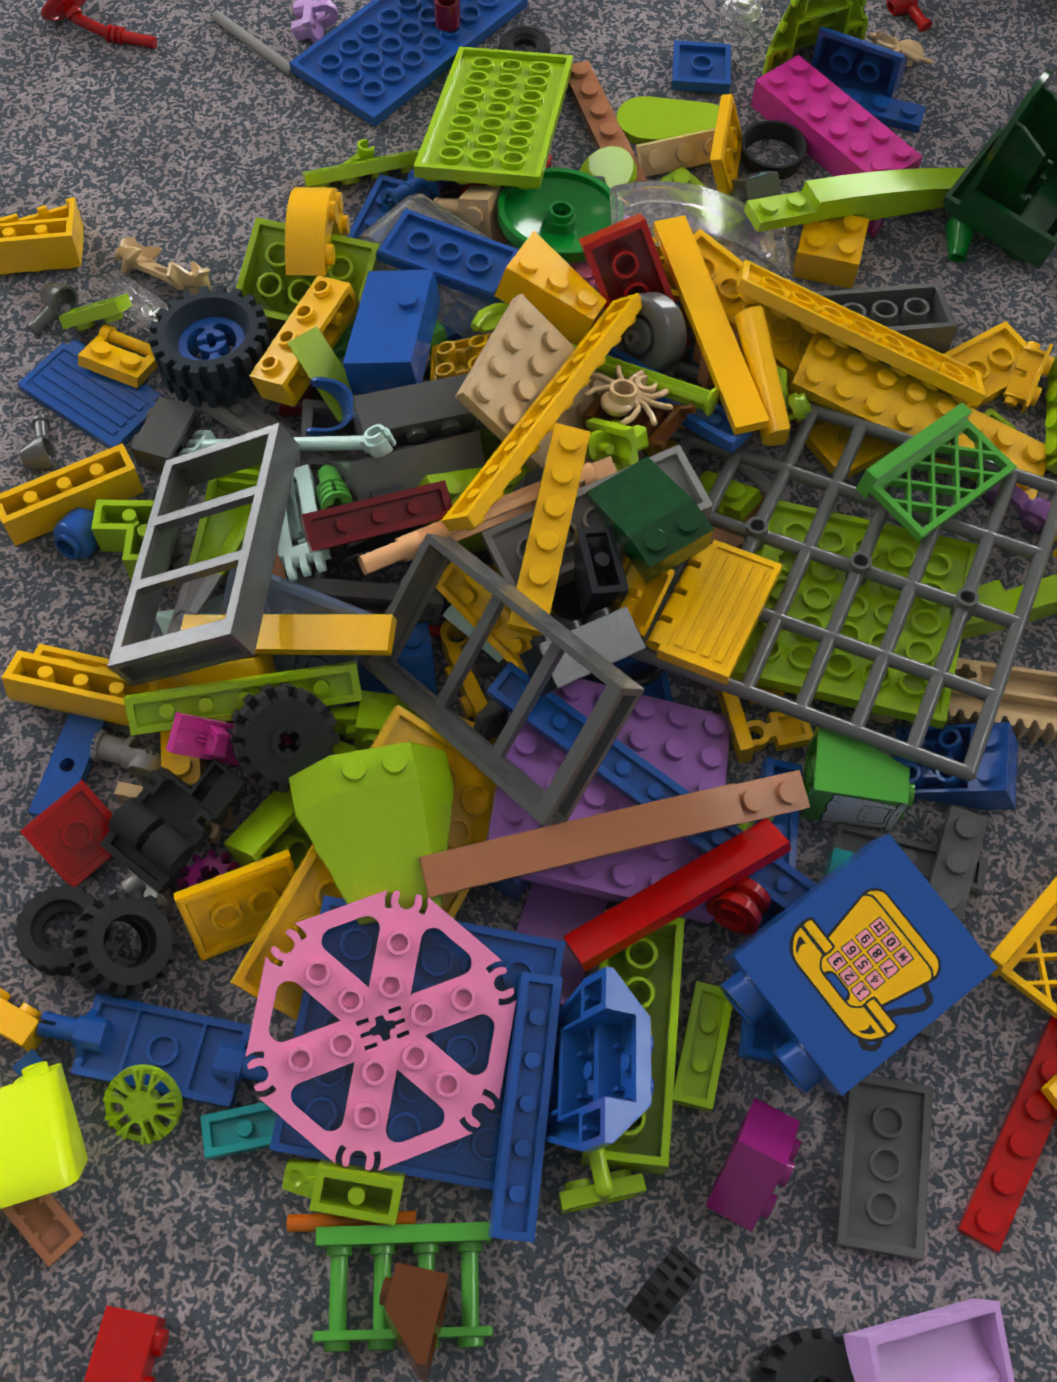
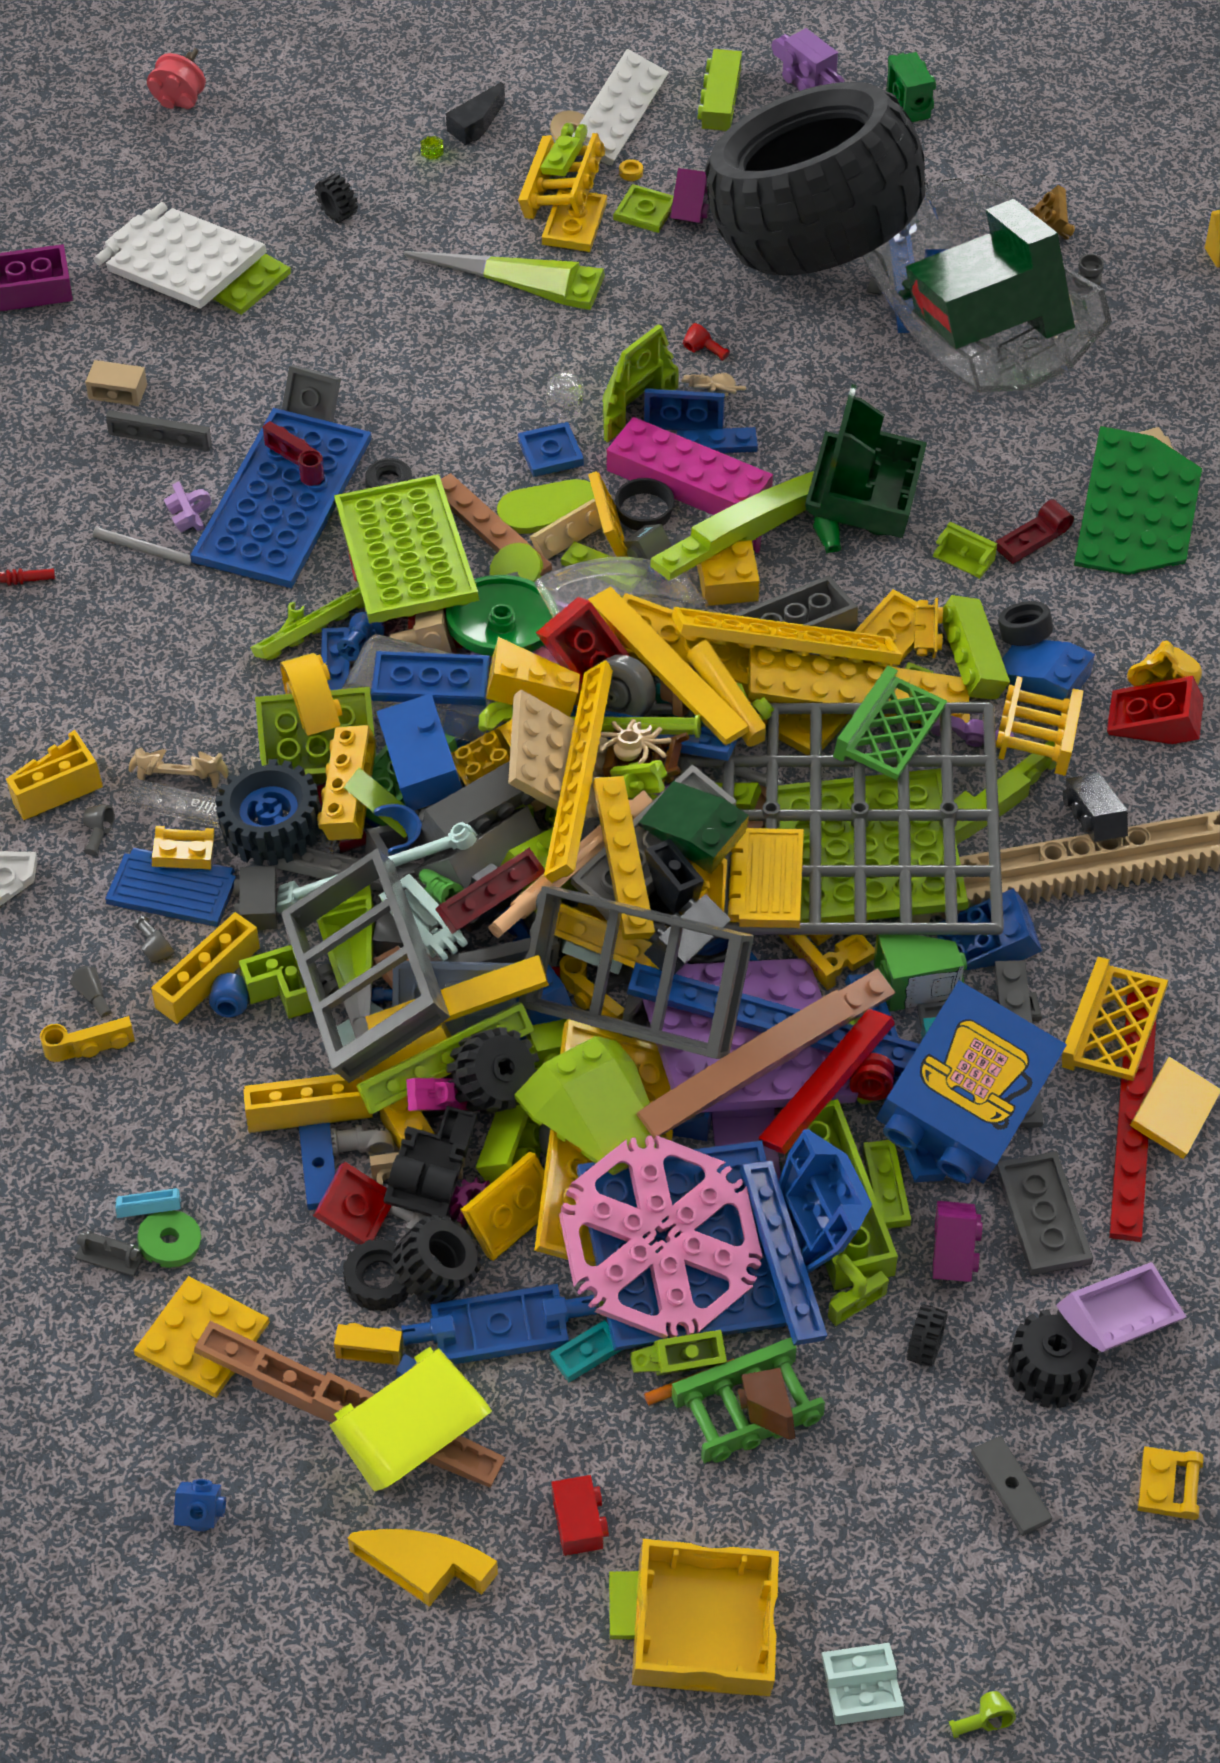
camera: 20 degrees left, 10 degrees down
(85, 316) = (134, 825): lime plate -> none
(143, 1104) = (504, 1360): lime wheel -> none

